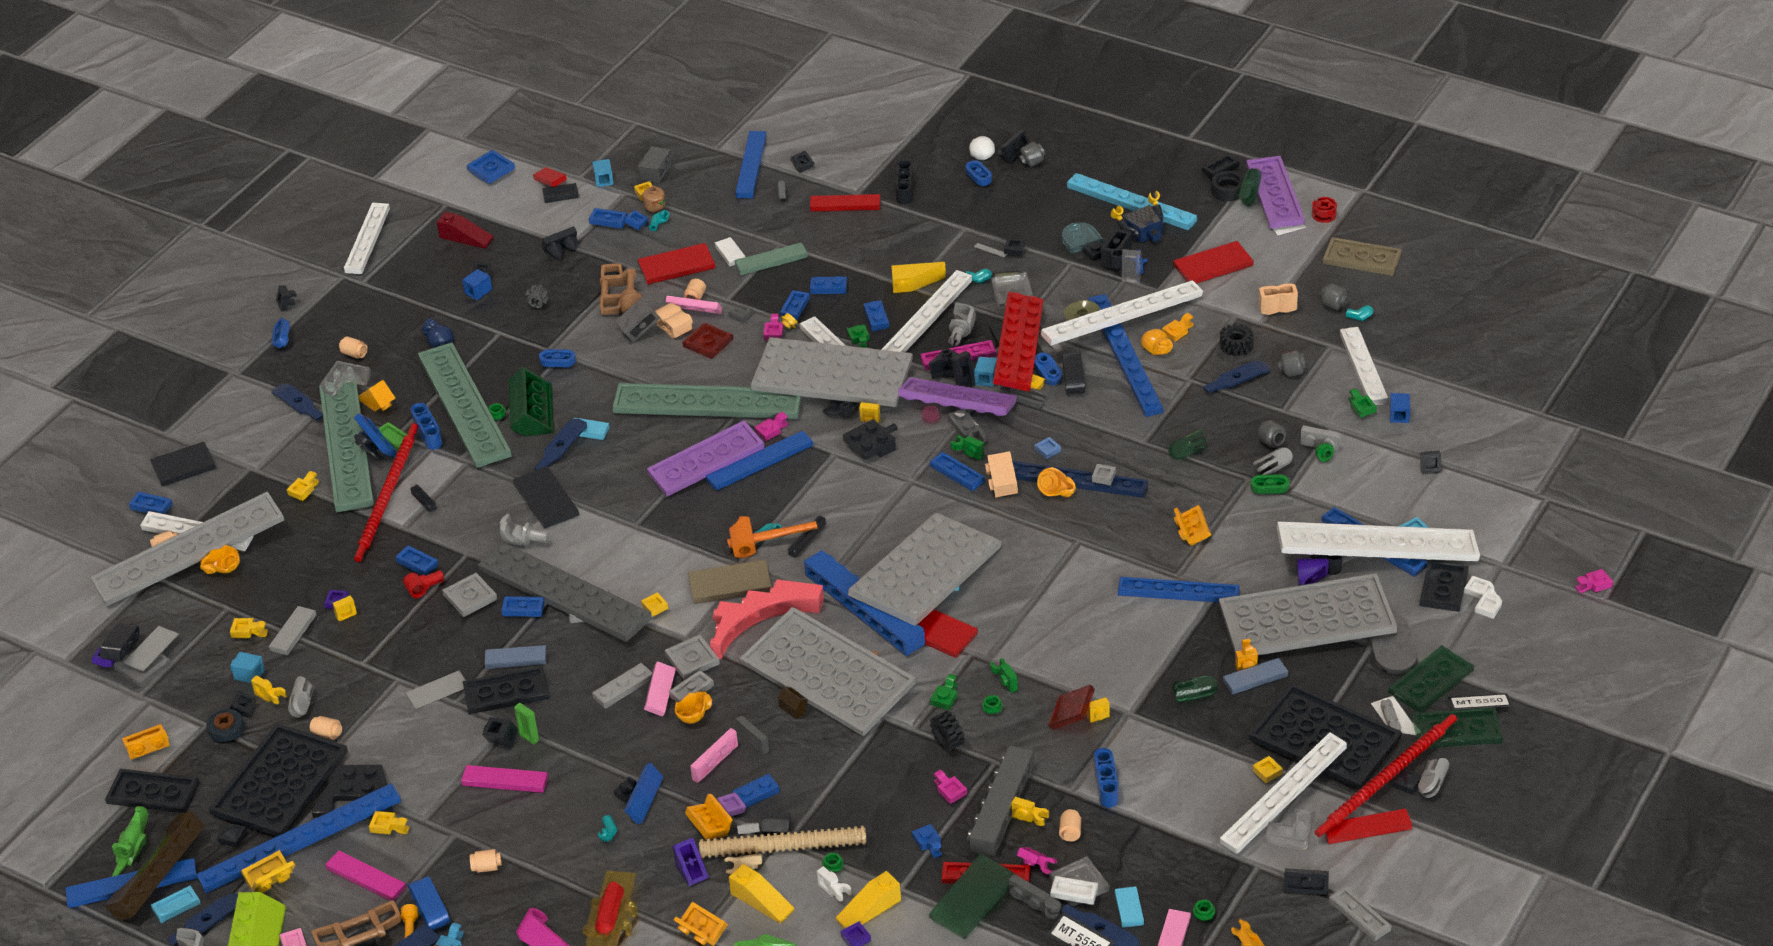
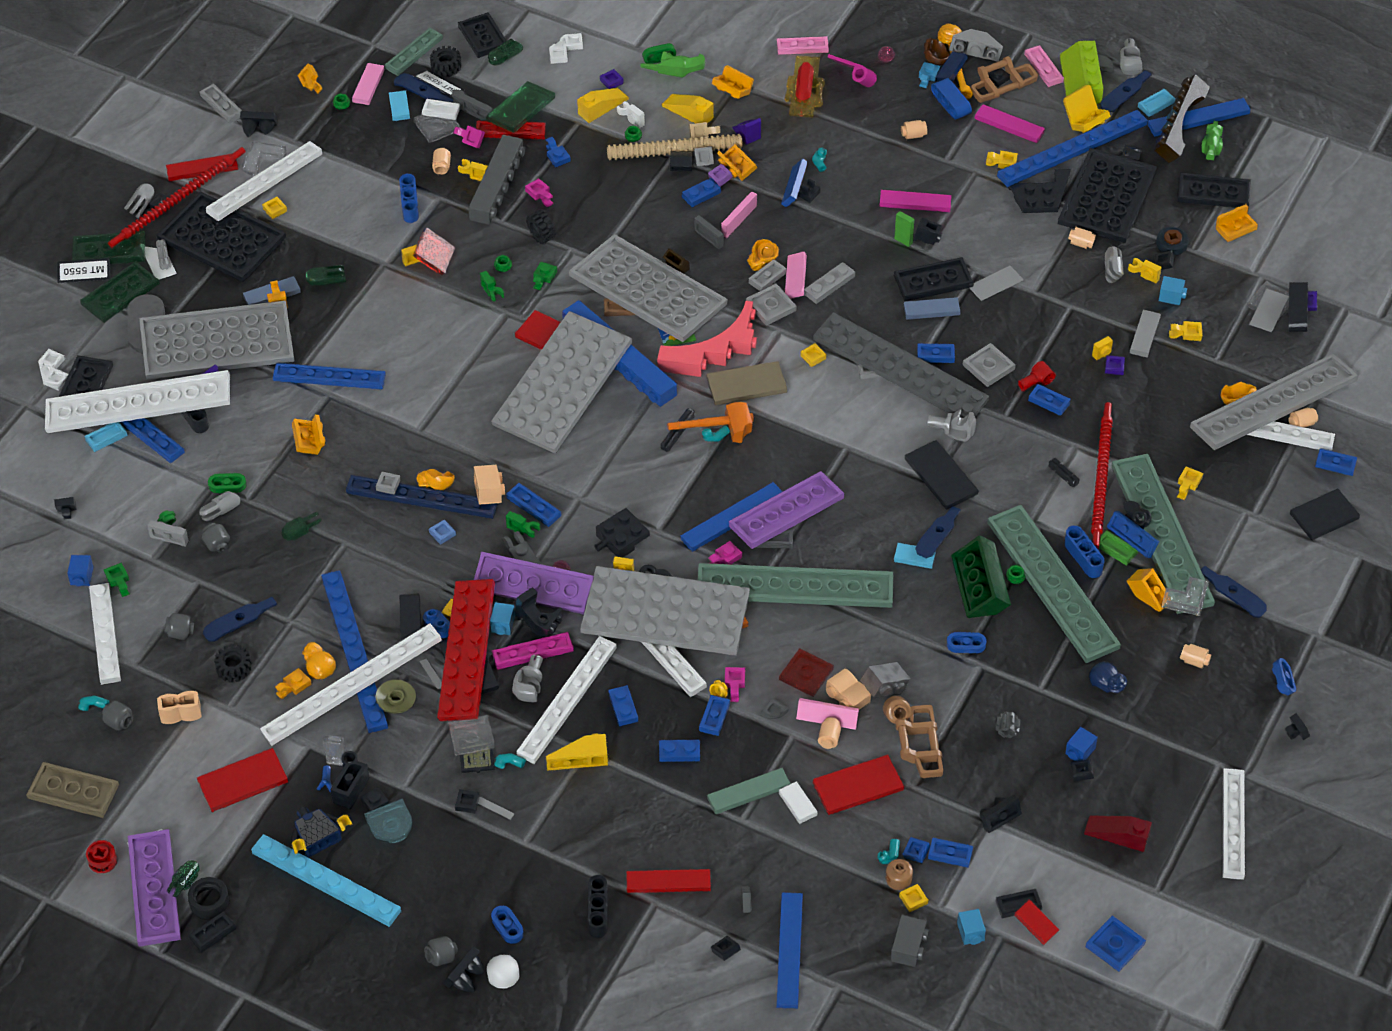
camera: 175 degrees right, 10 degrees up
(859, 335) = (640, 676): green plate -> none

